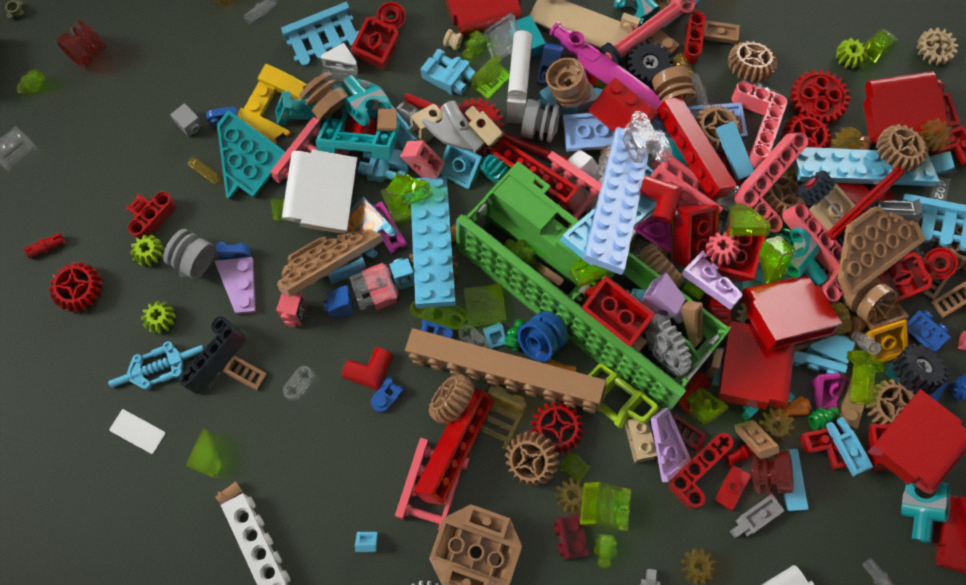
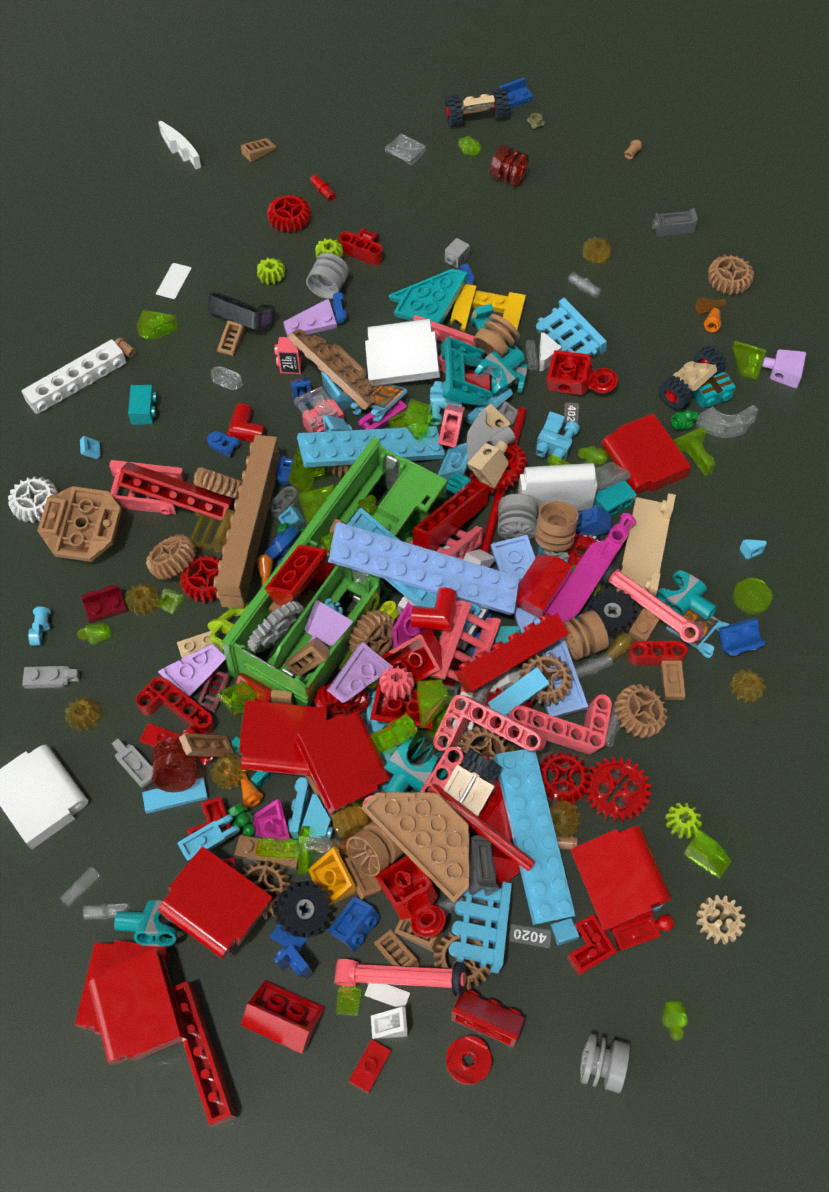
camera: 80 degrees right, 10 degrees down
(136, 373) = (222, 269): medium azure bar -> none
(203, 169) = (413, 275): clear yellow axle -> none
(318, 478) = (142, 404): none -> teal brick
(387, 120) = (484, 389): medium nougat slope -> none
(416, 55) = (571, 412): none -> clear sticker
(452, 39) = (593, 436): tan wheel -> none
(605, 506) = (130, 622): clear neon green brick -> none
(643, 139) = (503, 594): clear piece -> none
(902, 148) = (577, 878): medium nougat gear -> none
(905, 554) = (103, 911): none -> clear axle
(939, 129) = (599, 906): clear yellow gear -> none

